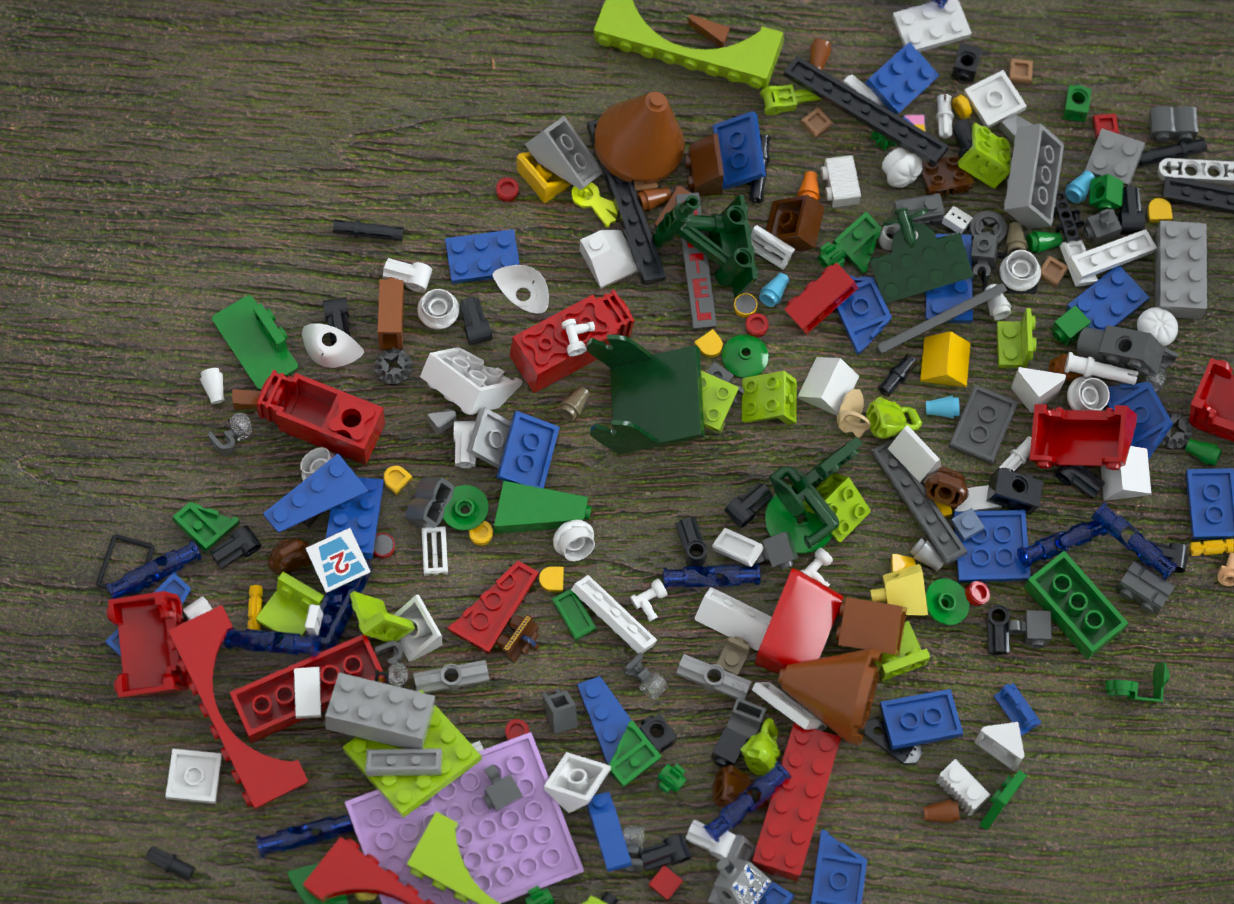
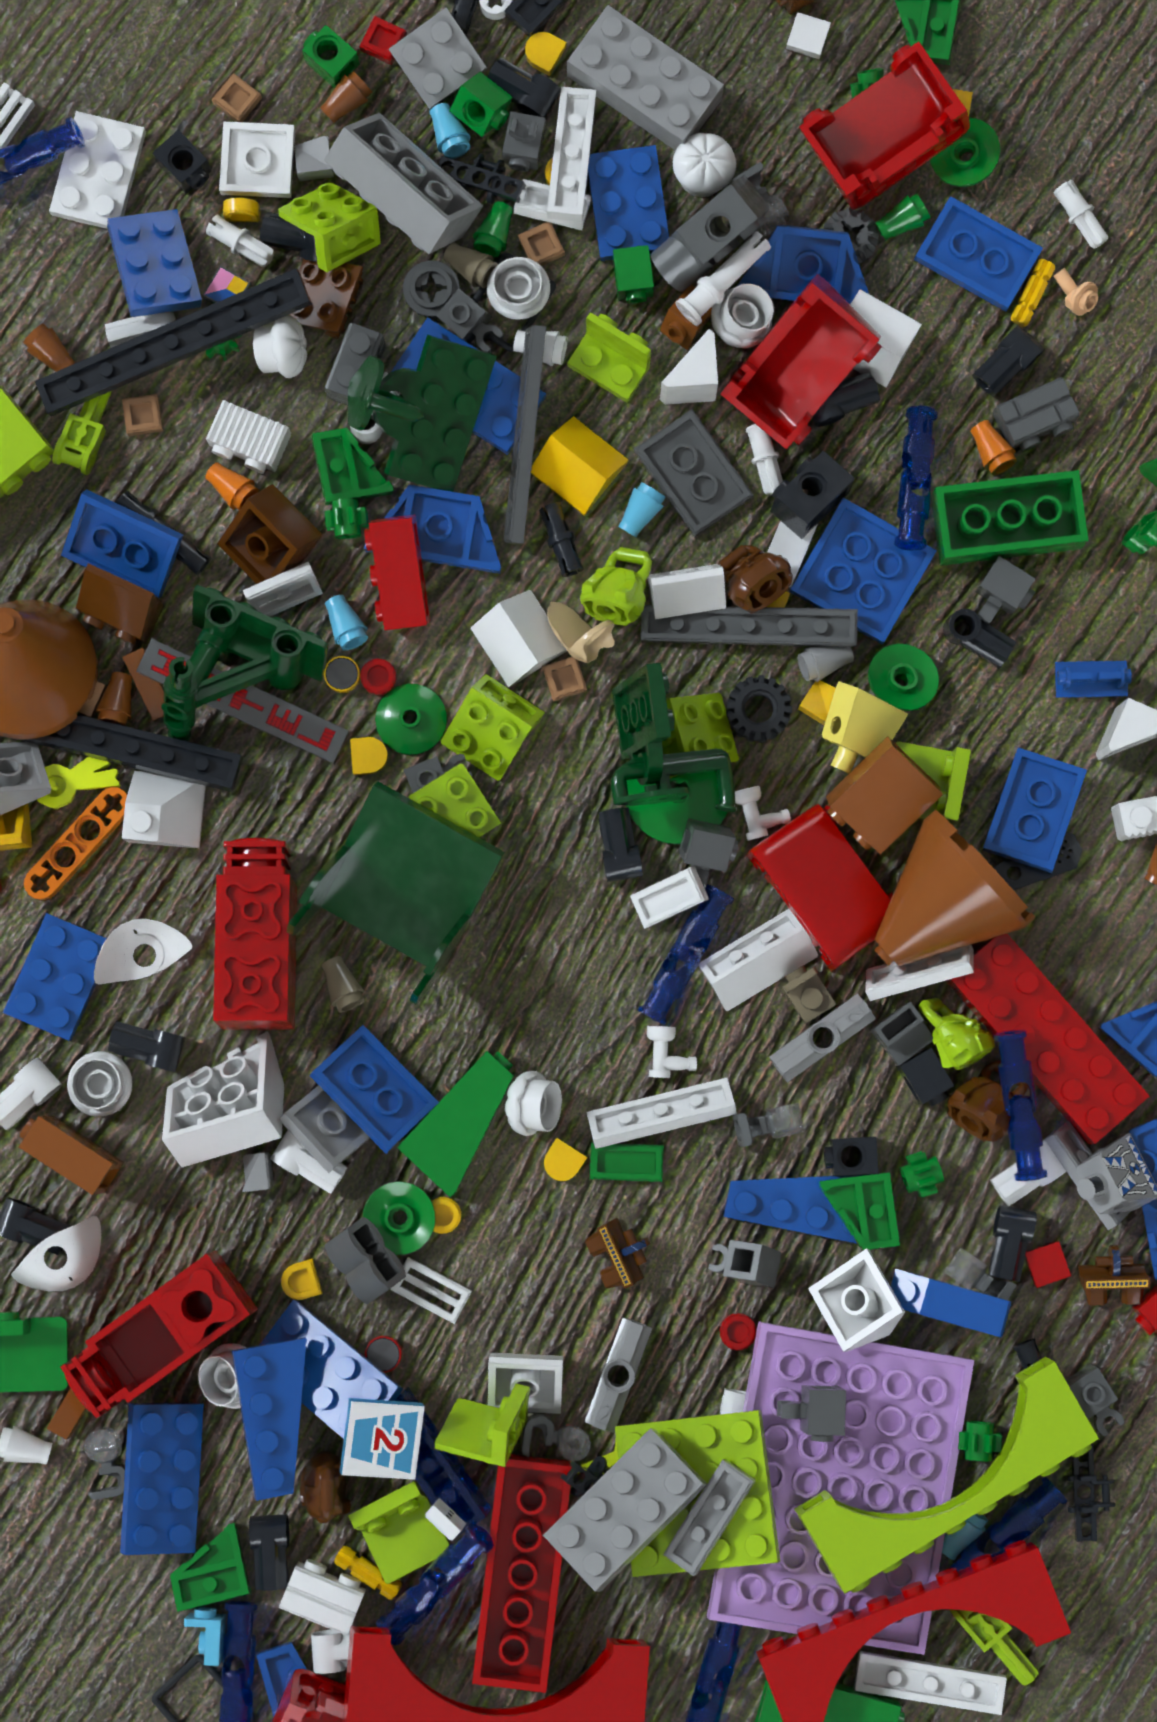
camera: 50 degrees left, 15 degrees up
(167, 543) = (212, 1638): none -> medium azure bracket
(226, 588) = (322, 1596): none -> white brick
(241, 466) = (161, 1478): none -> blue plate
(307, 692) = (536, 1583): white tile -> none
(395, 375) = (156, 1196): dark grey gear -> none
(490, 614) = (561, 1267): red wing -> none
(562, 221) = (73, 839): none -> orange beam
(576, 347) = (255, 937): white piece -> none
(692, 541) = (621, 949): black piece -> none
(822, 423) = (564, 678): none -> medium nougat tile
(869, 547) = (758, 687): none -> black tyre
(957, 220) = (396, 322): white tile -> none
(967, 524) = (820, 584): sand blue plate -> none
(977, 593) = (913, 630): red tile -> none
(1061, 124) = (346, 97): none -> dark orange cone
(1109, 577) = (994, 450): none -> orange cone
(1144, 549) = (1000, 383): clear blue piece -> none

